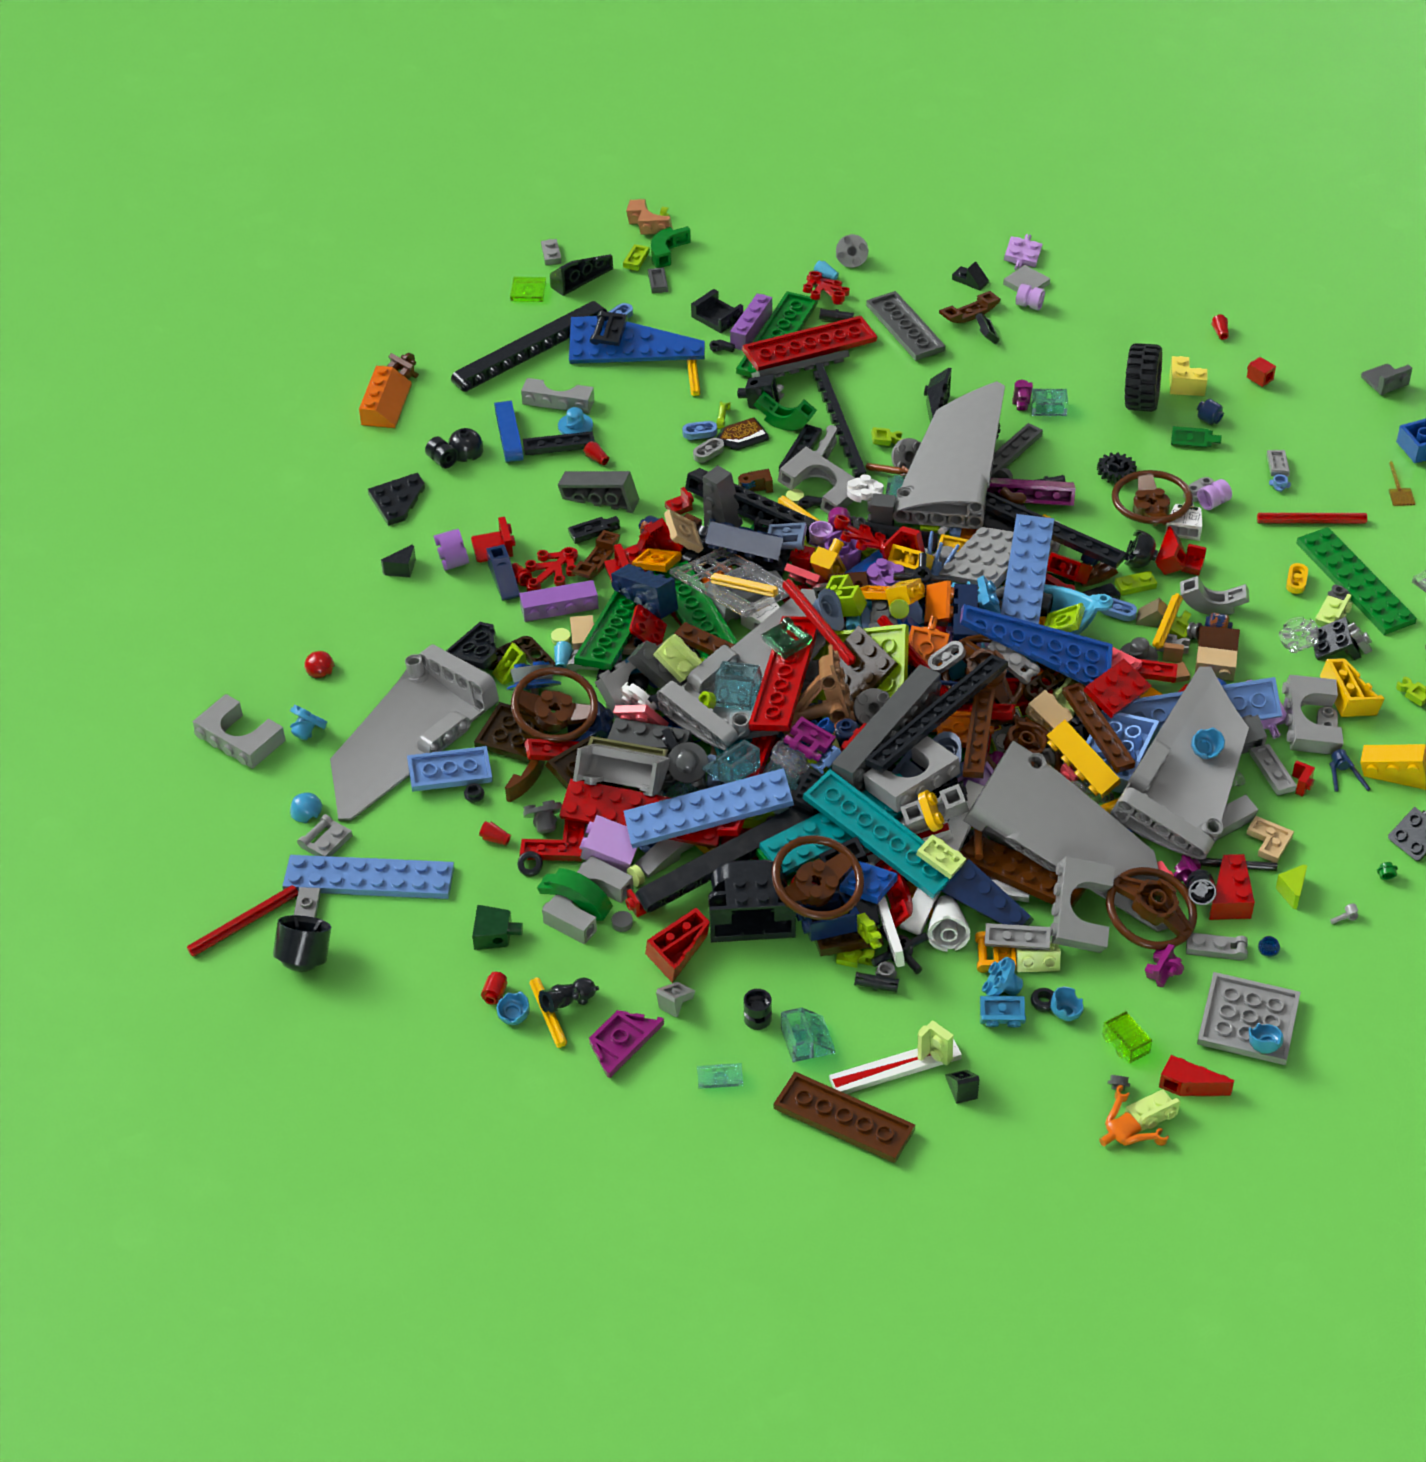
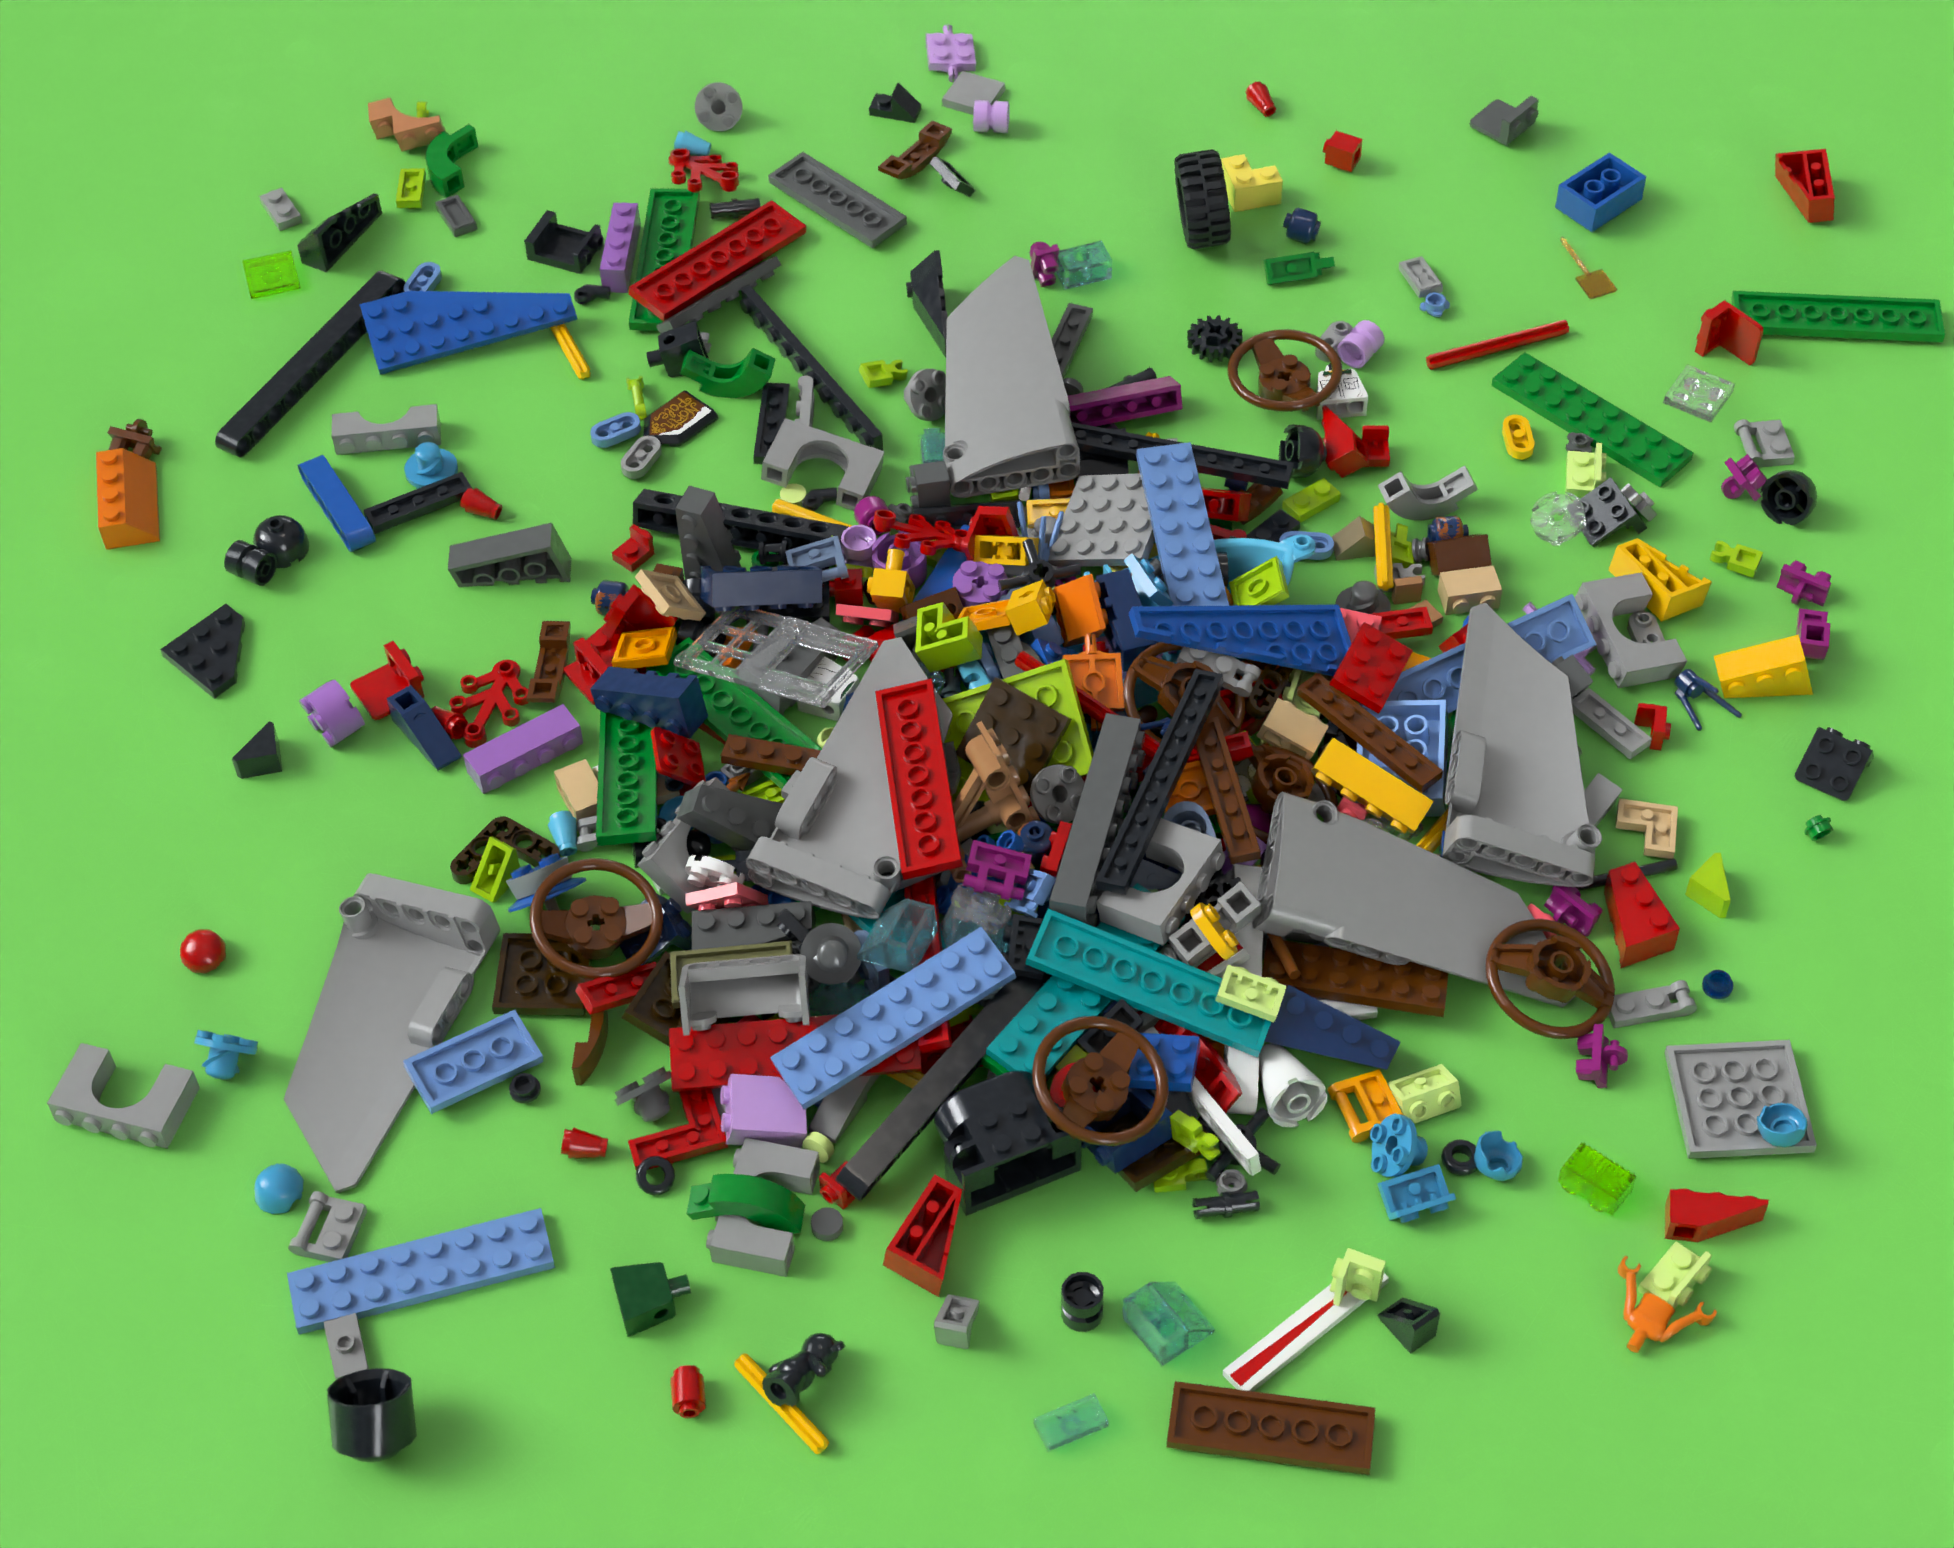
camera: 20 degrees left, 5 degrees up
(242, 920) = (256, 1404): red axle -> none
(477, 646) = (433, 856): black plate -> none
(513, 1008) = (730, 1415): dark azure hair -> none
(560, 635) = (547, 803): yellowish green tile -> none
(593, 528) = (525, 622): black hinge -> none
(614, 328) = (433, 309): black plate -> none
(621, 1038) = (906, 1411): magenta wing -> none
(677, 657) = (752, 797): yellowish green bracket -> none
(708, 699) = (821, 847): lime tile -> none
(737, 685) = (855, 815): clear light blue slope -> none
(744, 585) = (800, 657): yellow axle -> none
(756, 481) = (733, 485): reddish brown leg -> none
(784, 643) = (896, 732): clear green plate -> none
(819, 622) = (934, 685): red axle -> none
(830, 608) = (938, 662): sand blue piece -> none
(863, 488) = (893, 461): white plate -> none
(887, 469) = (931, 420): dark orange piece -> none
(899, 609) = (1035, 634): lime tile -> none
(946, 656) = (1129, 688): light grey plate -> none
(1017, 498) = (1103, 420): reddish brown arm -> none
(1017, 936) = (1394, 1077): light grey plate -> none
(1067, 927) = (1452, 1041): light grey arch -> none
(1116, 1080) = (1615, 1250): dark grey plate -> none
(1201, 887) = (1602, 927): black wheel -> none
(1208, 743) = (1530, 716): dark azure hair -> none
(1351, 914) = (1799, 904): light grey hand -> none

